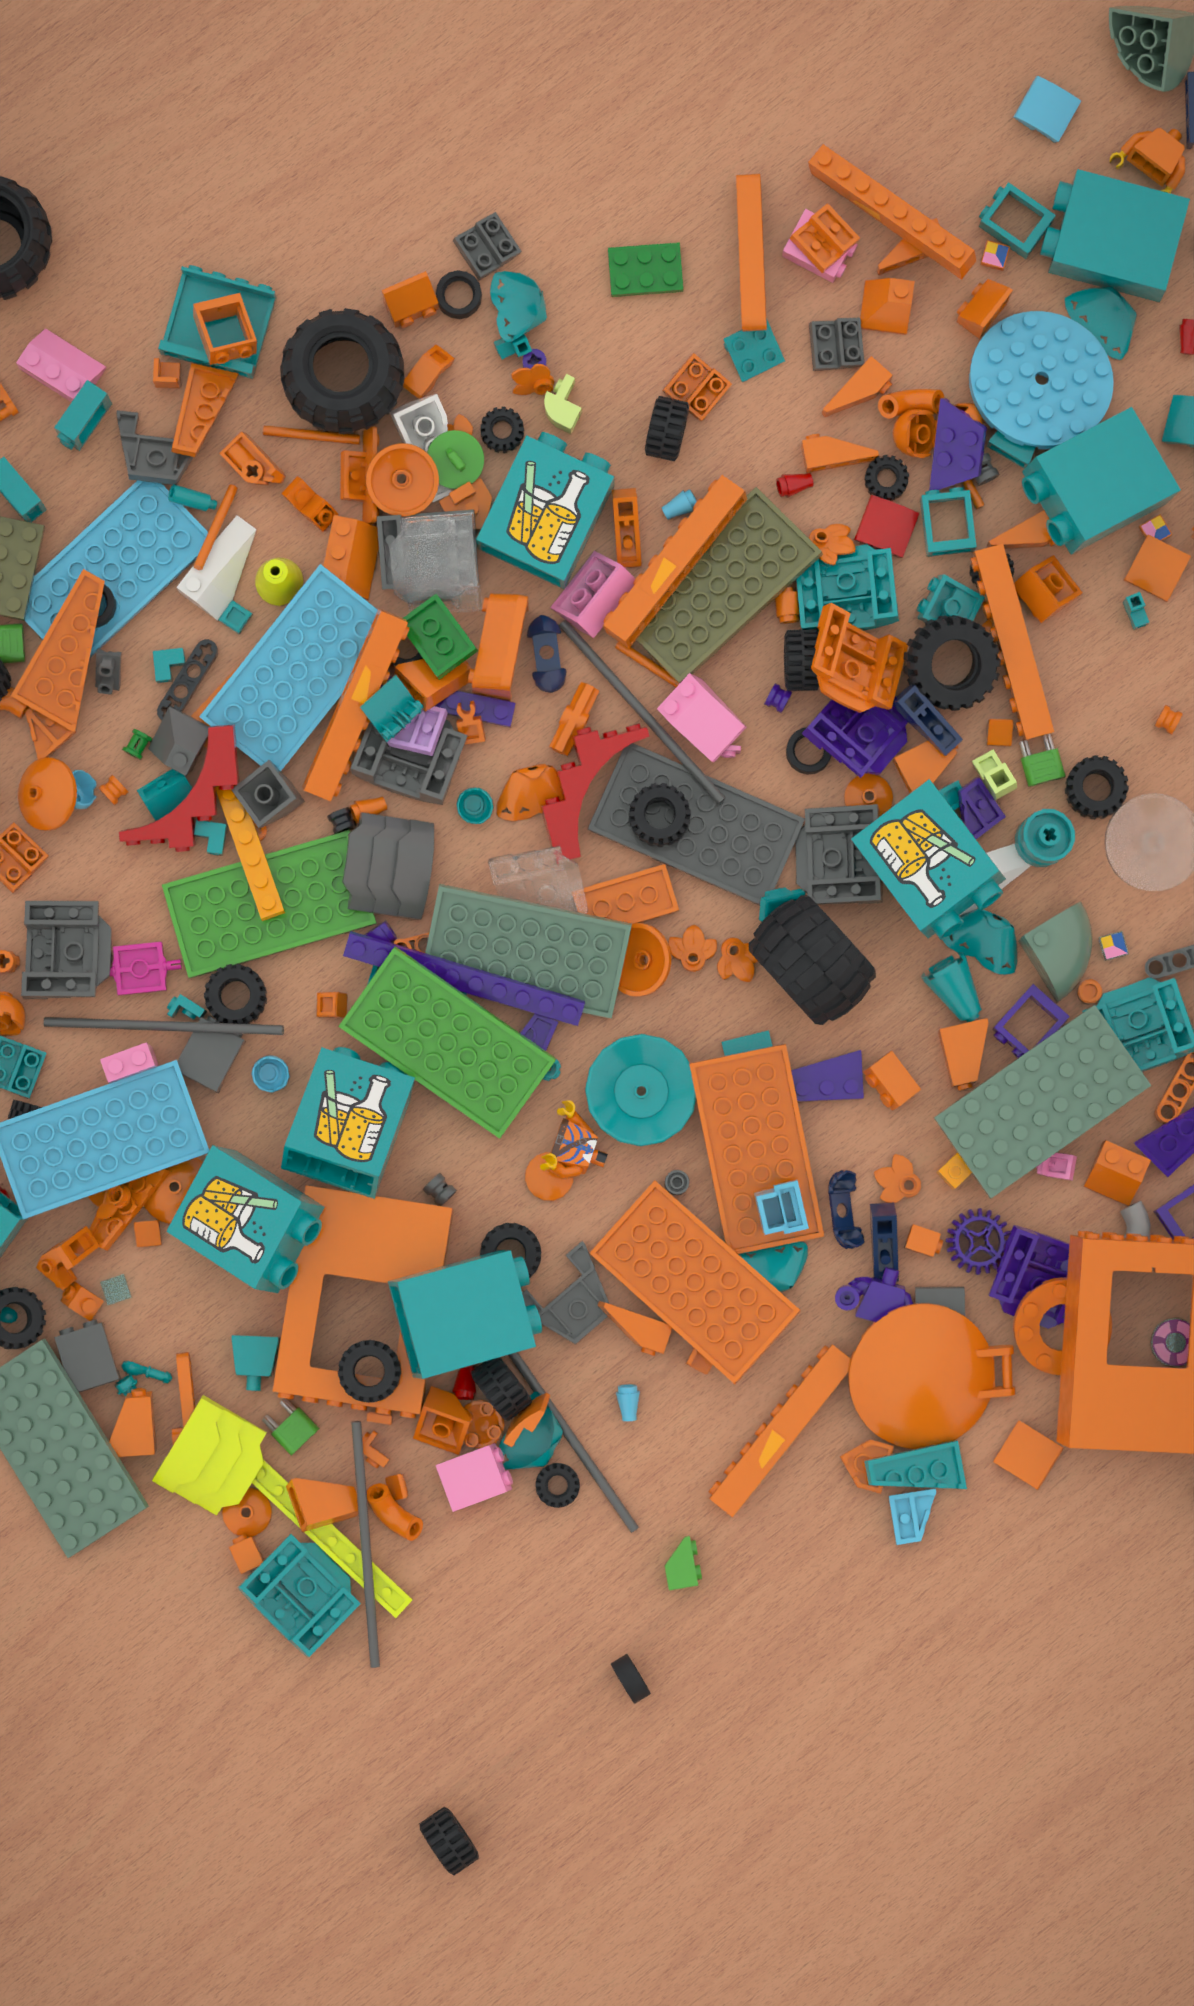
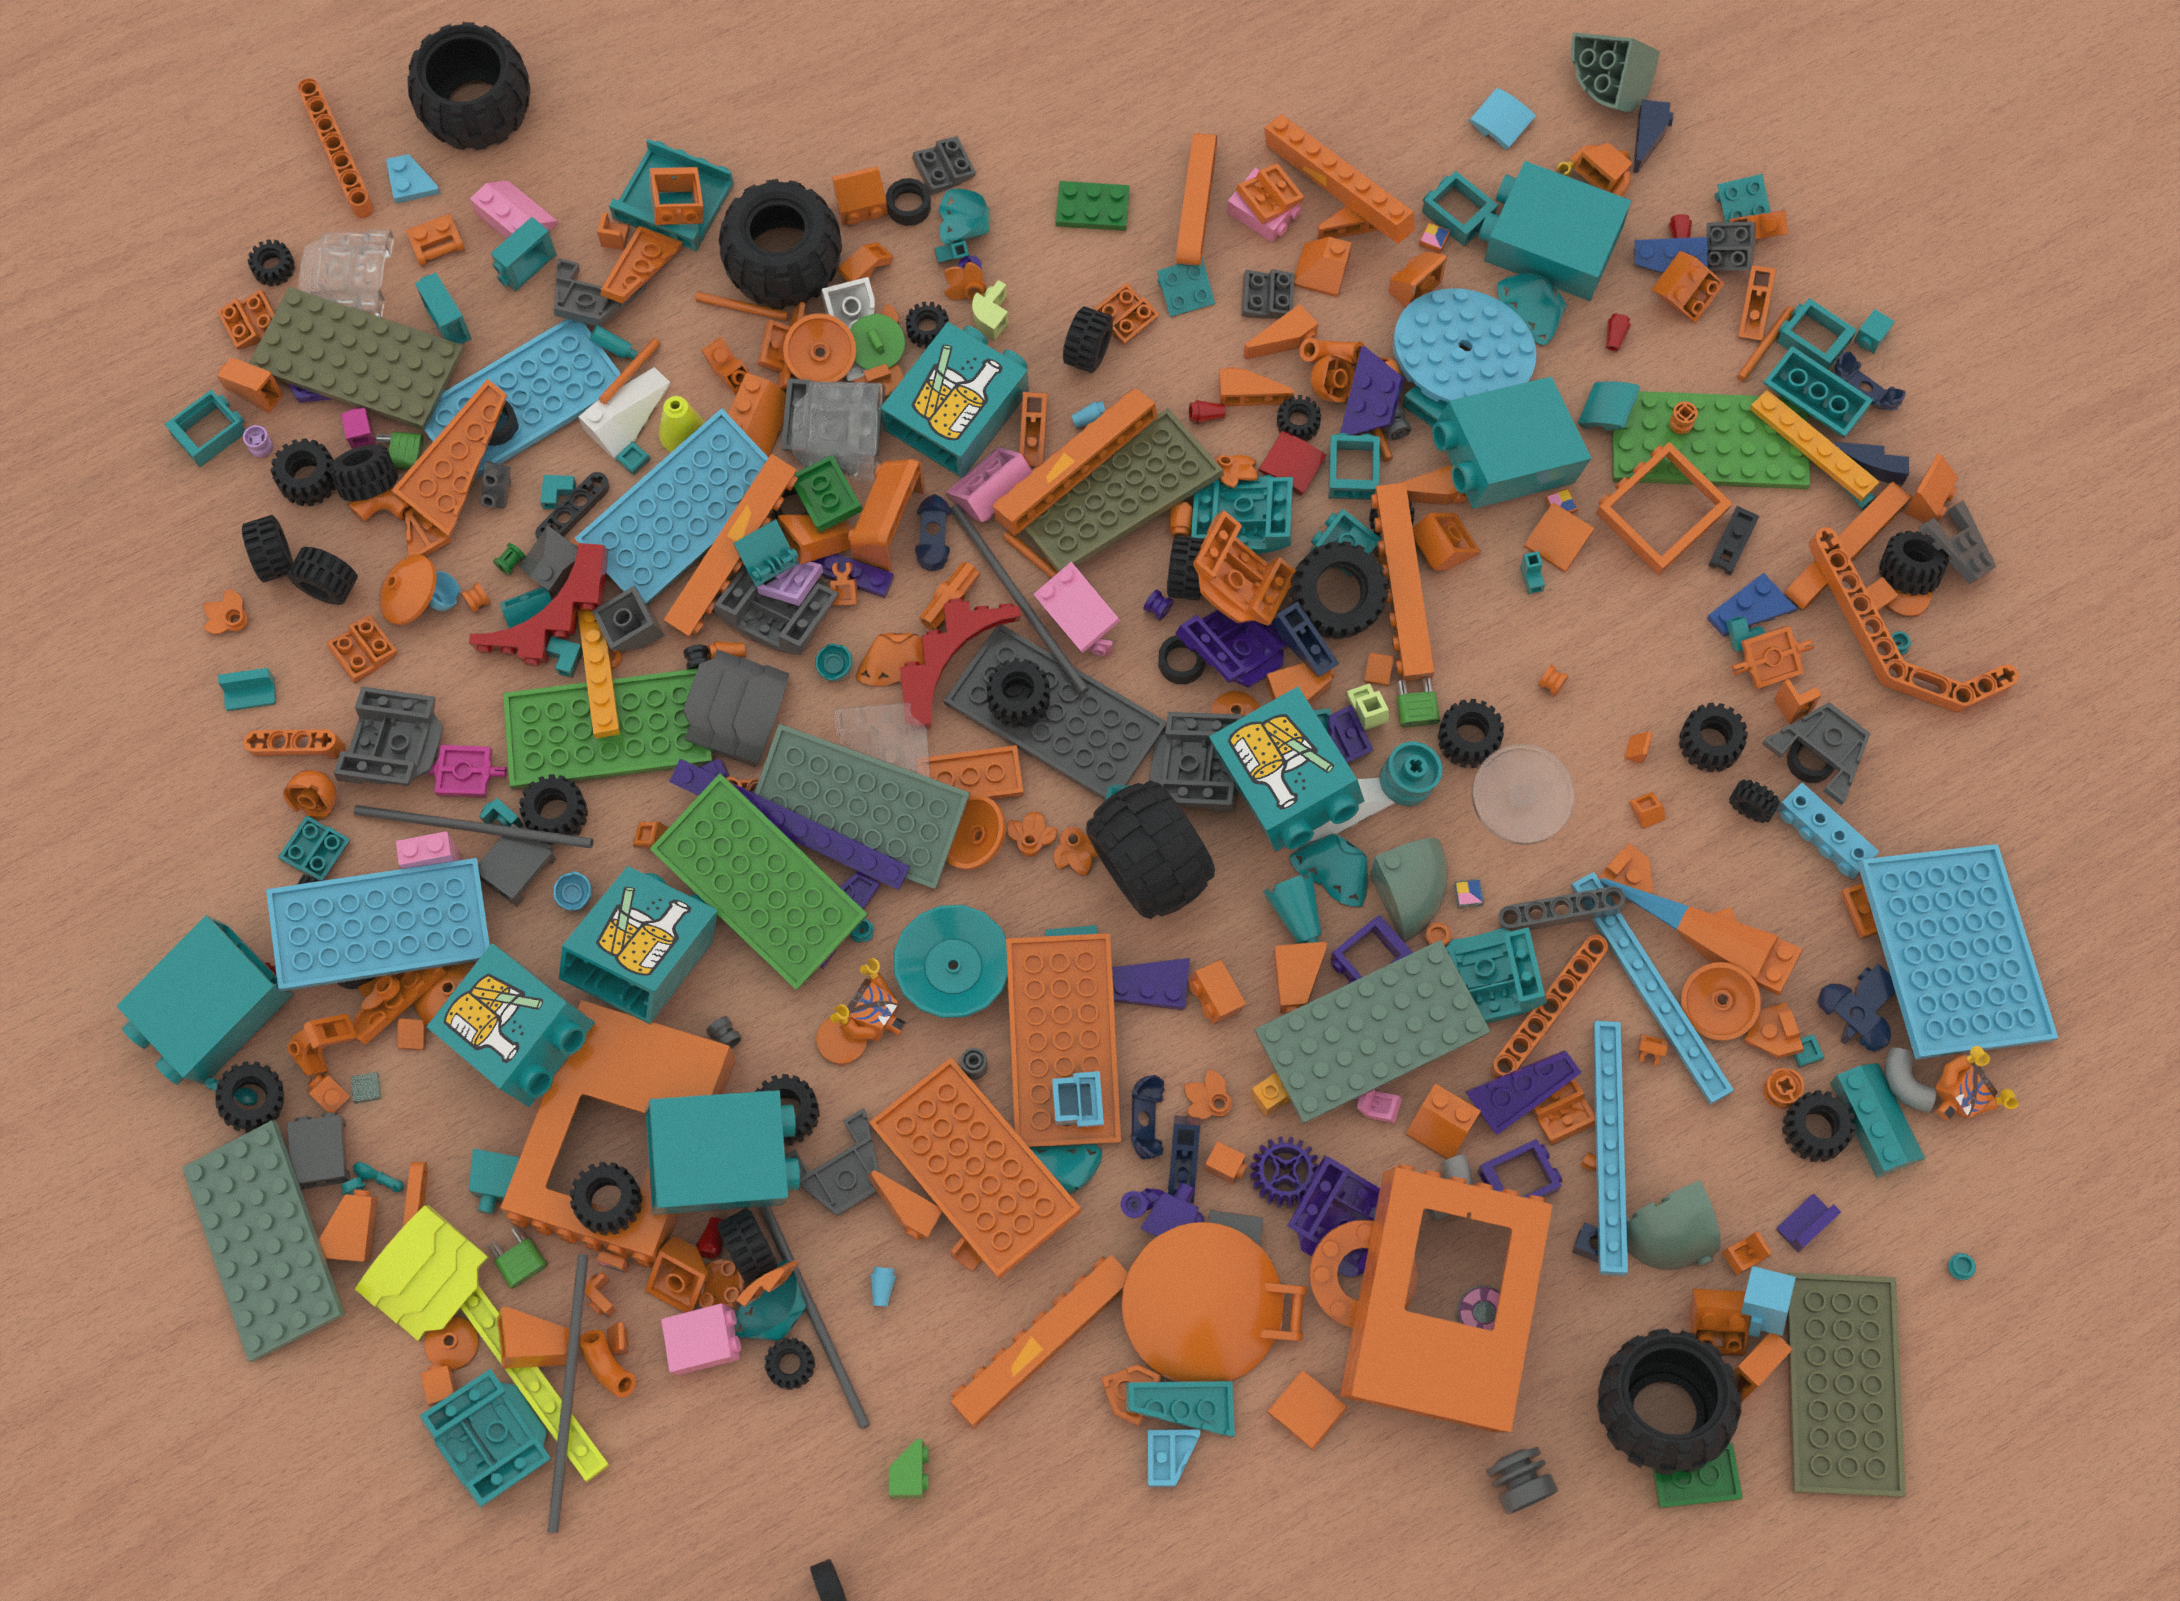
camera: 10 degrees right, 15 degrees down
(245, 454) = (673, 314): orange piece -> none

